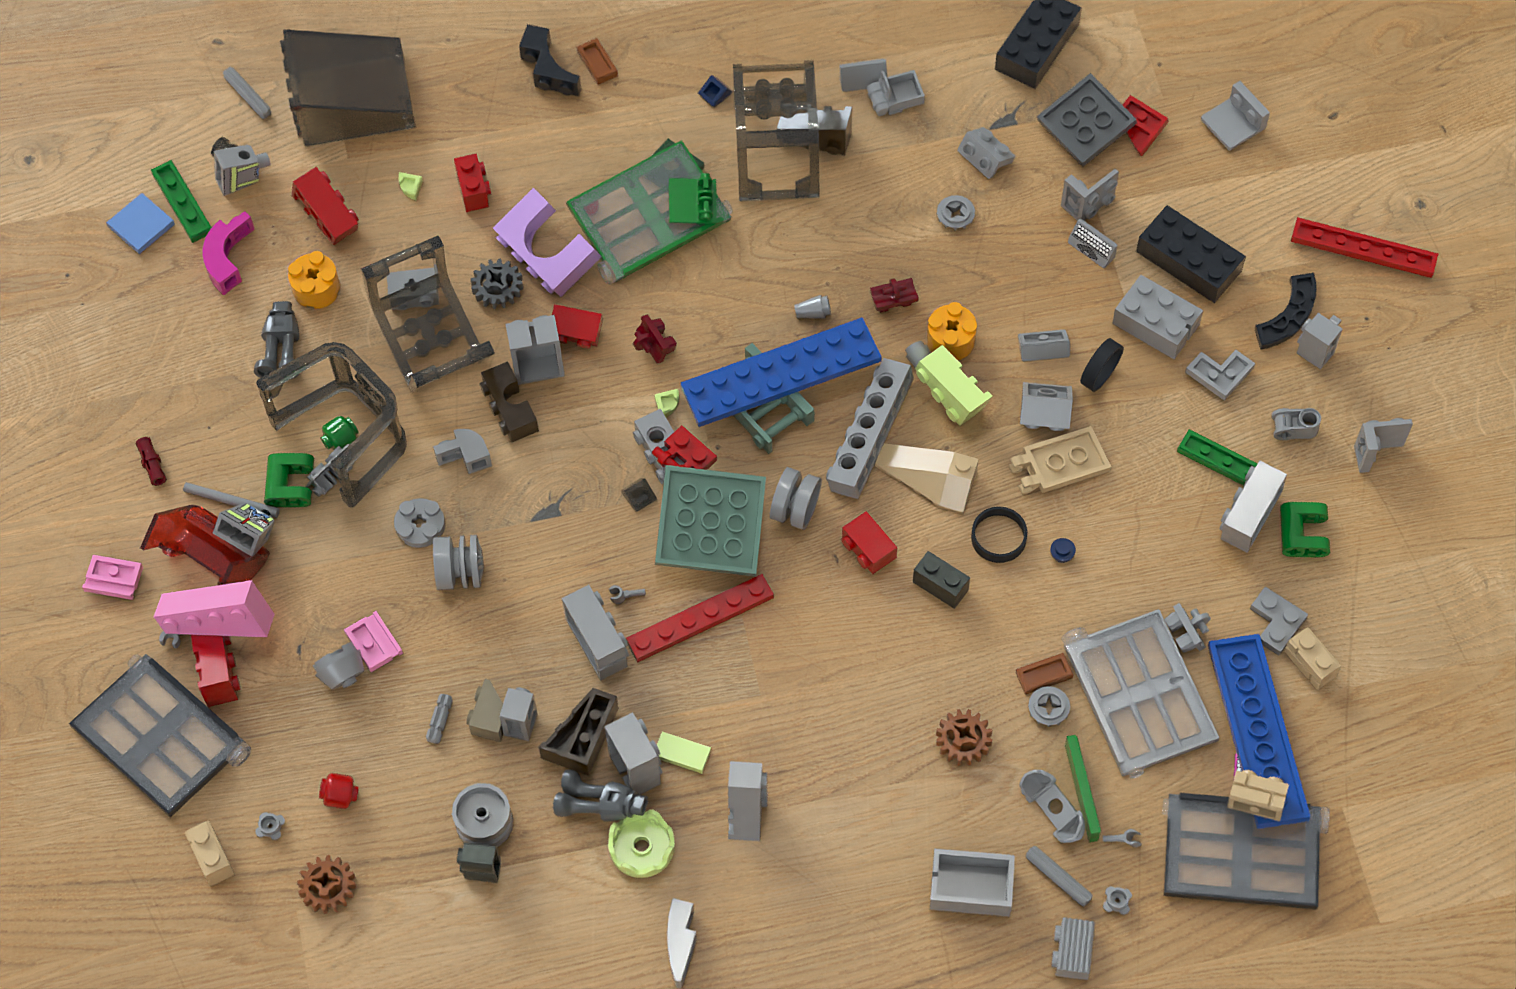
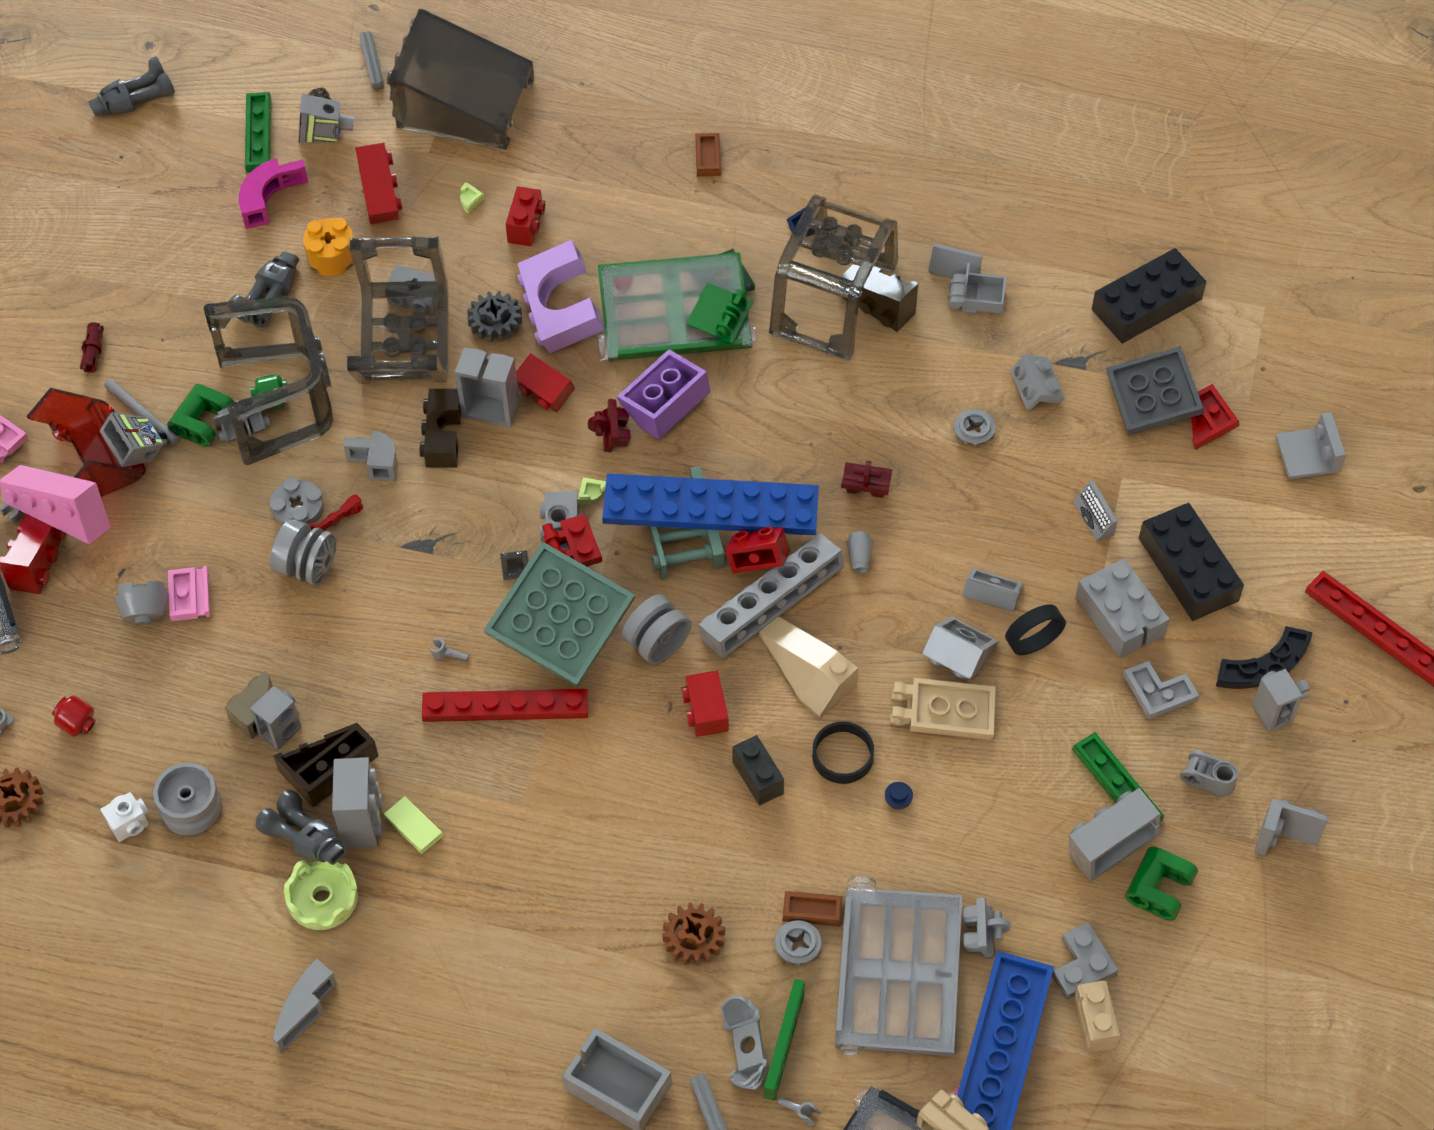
camera: 25 degrees right, 5 degrees down
(32, 220) = (120, 95): none -> dark grey piece
(140, 223) = (210, 136): medium blue tile -> none
(437, 855) = (125, 816): none -> white brick
(439, 718) = (206, 691): light grey axle -> none
(469, 505) = (351, 506): none -> red piece
(479, 862) = (158, 840): pearl dark grey brick -> none
(547, 73) = (655, 120): black arch -> none
(595, 631) = (393, 672): light grey piece -> none
(685, 291) = (664, 393): none -> medium lavender slope
(745, 799) = (441, 895): light grey wedge -> none
(813, 308) = (783, 460): light grey cone -> none
(841, 394) = (757, 549): none -> red brick
(951, 386) = (872, 587): yellowish green wedge -> none
(953, 328) = (904, 537): light orange brick -> none
(1085, 202) = (1111, 467): light grey bracket -> none

